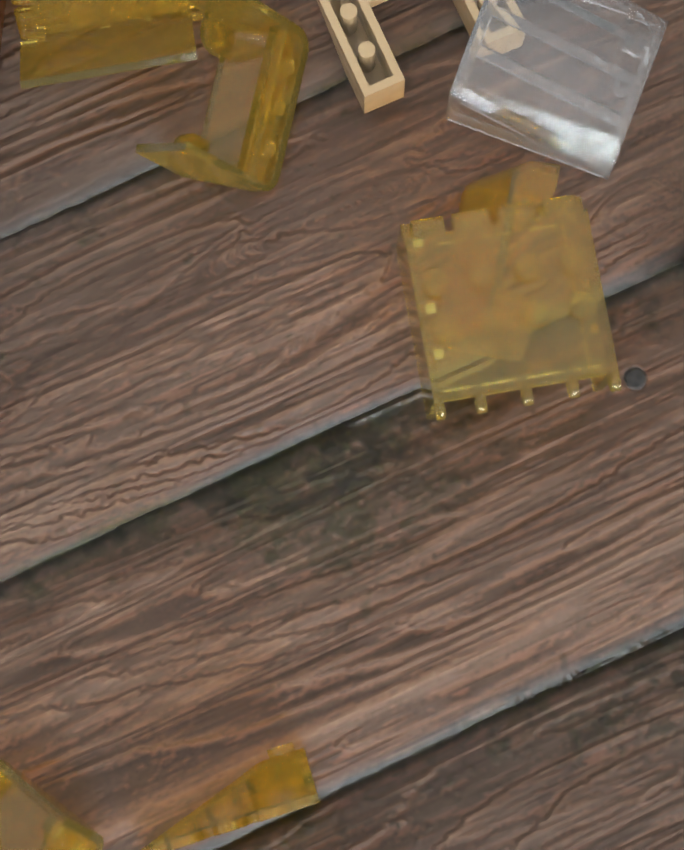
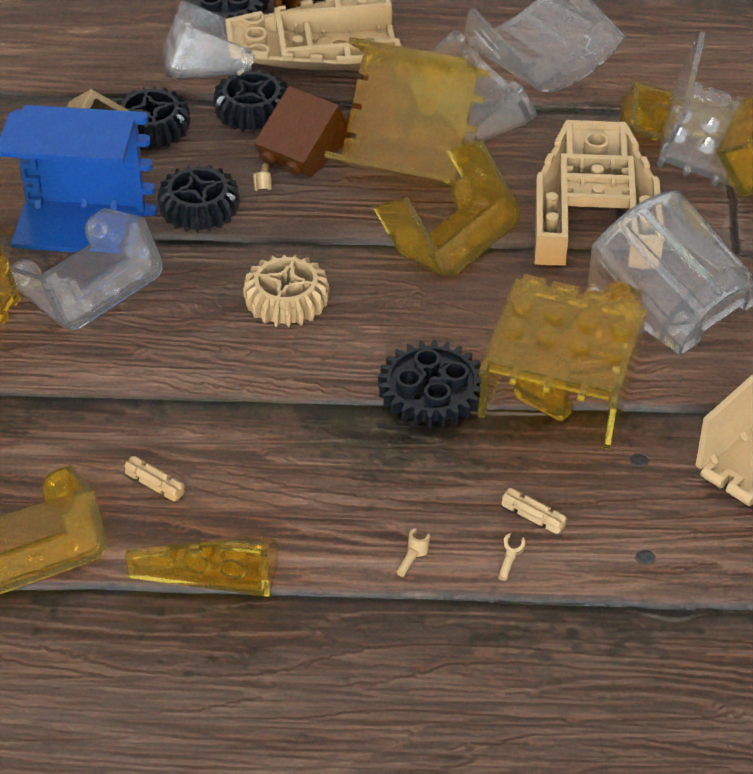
camera: 25 degrees right, 35 degrees down
(66, 326) = (286, 290): none -> tan gear
(95, 705) = (154, 478): none -> tan axle
(306, 387) = (430, 383): none -> black gear
(451, 661) = (415, 549): none -> tan hand
(558, 527) = (534, 510): none -> tan axle
(563, 604) = (509, 557): none -> tan hand

